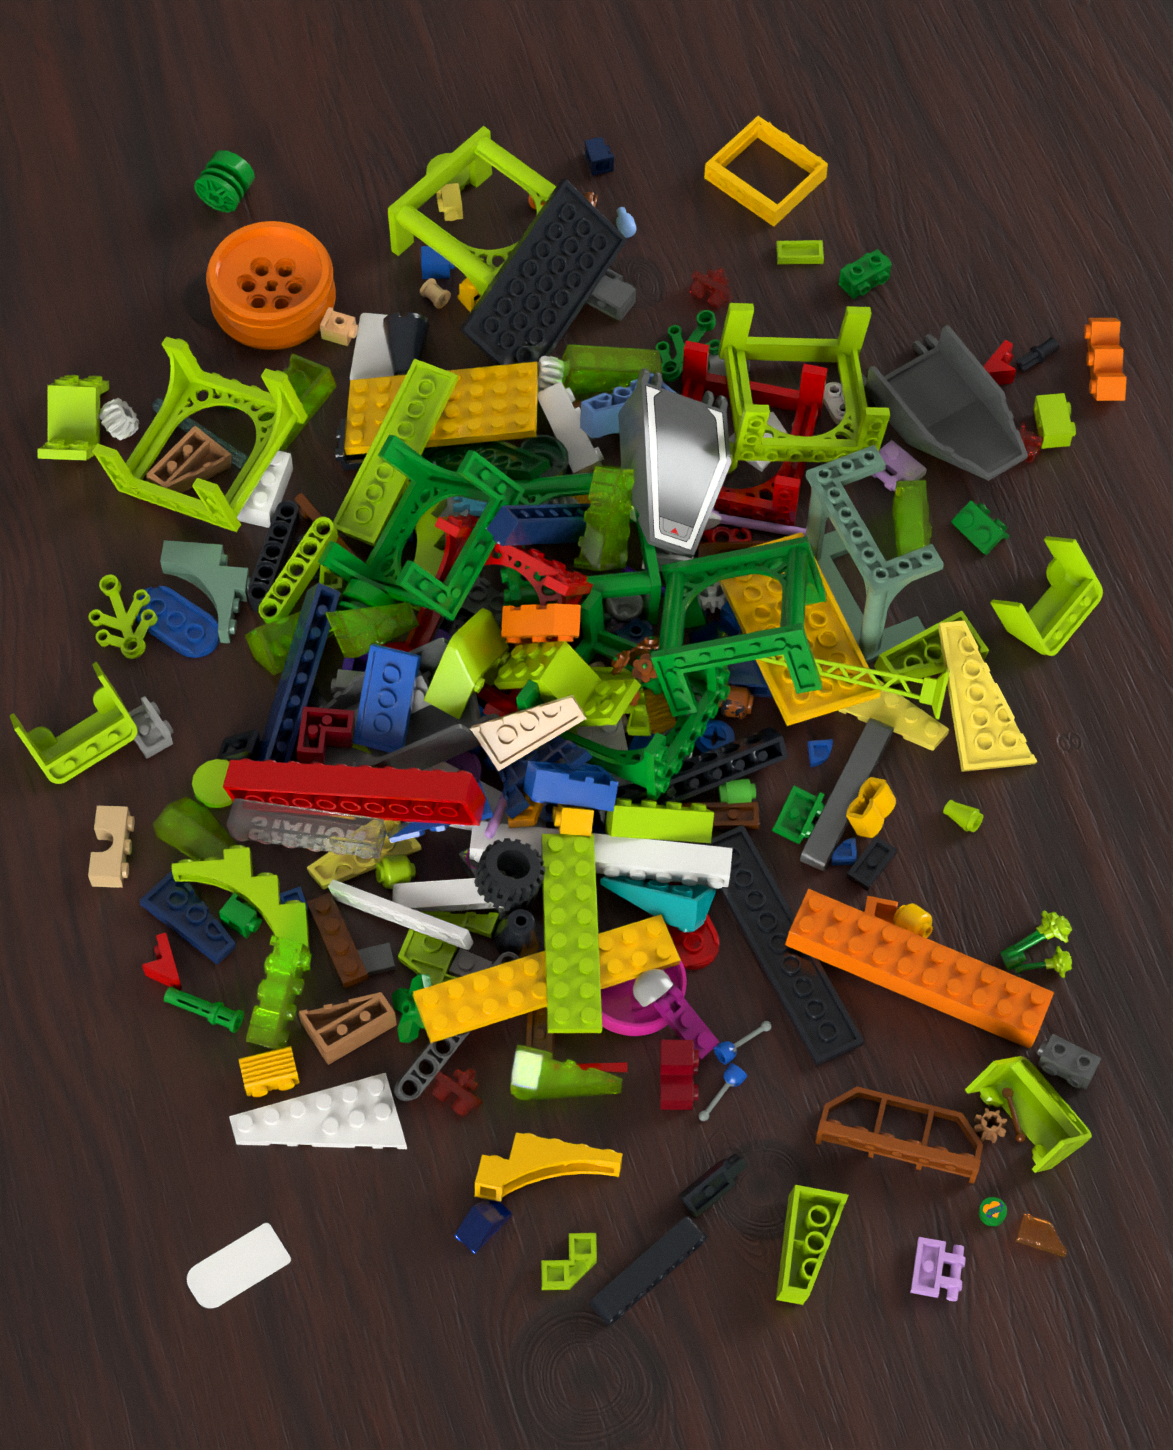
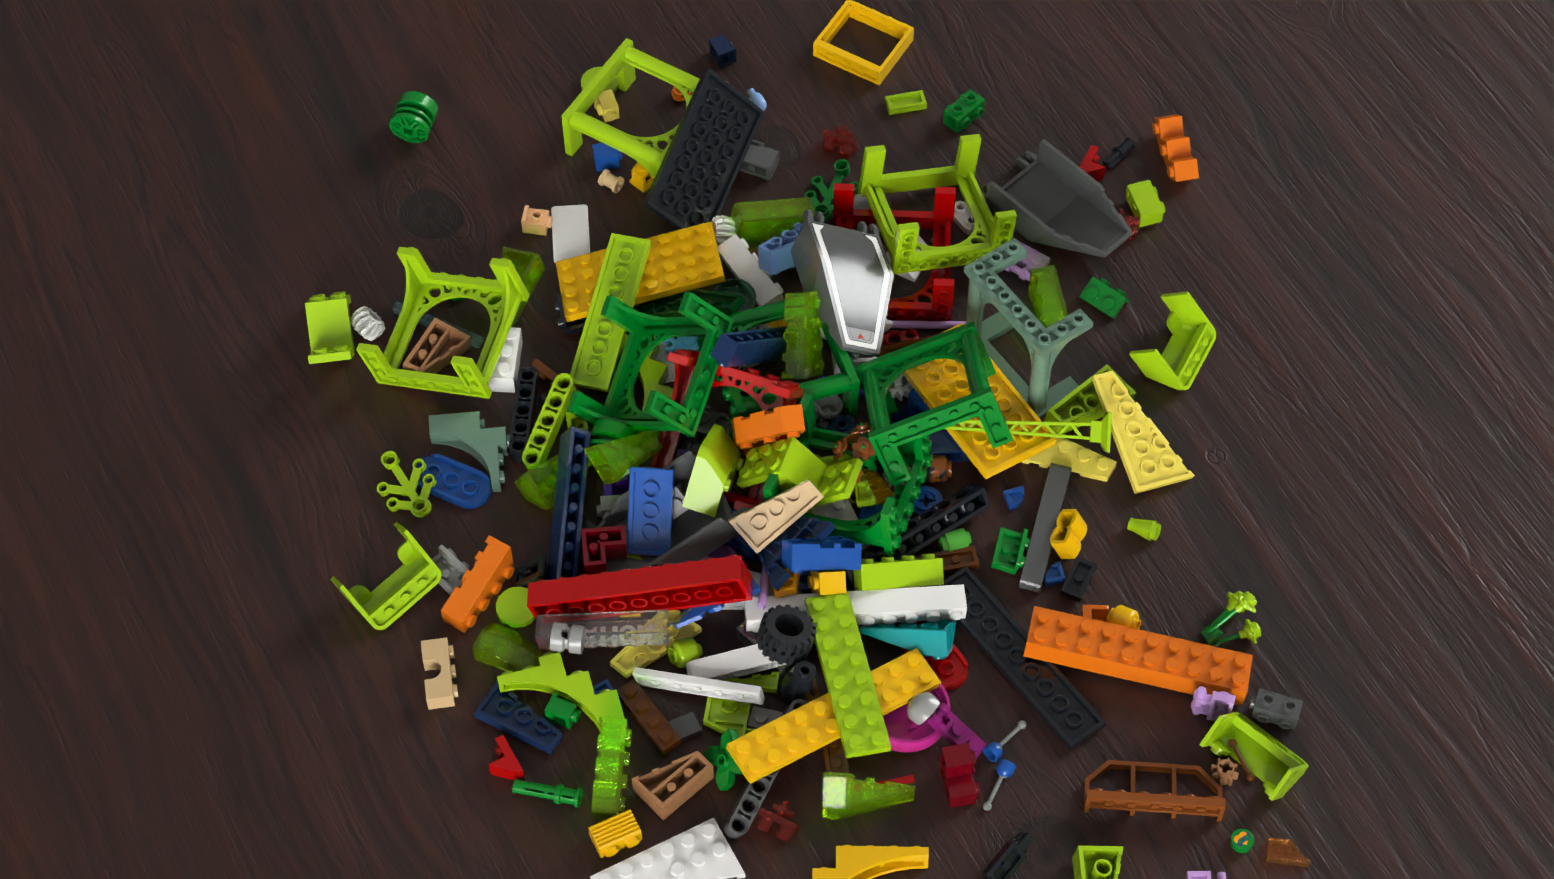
camera: 10 degrees left, 5 degrees down
(178, 751) = (479, 585): none -> orange wedge
(270, 285) = (472, 194): orange wheel -> none
(270, 833) = (576, 638): none -> light grey wheel
(405, 339) = (595, 222): black cone -> none
(995, 1044) = (1212, 705): none -> lavender plate

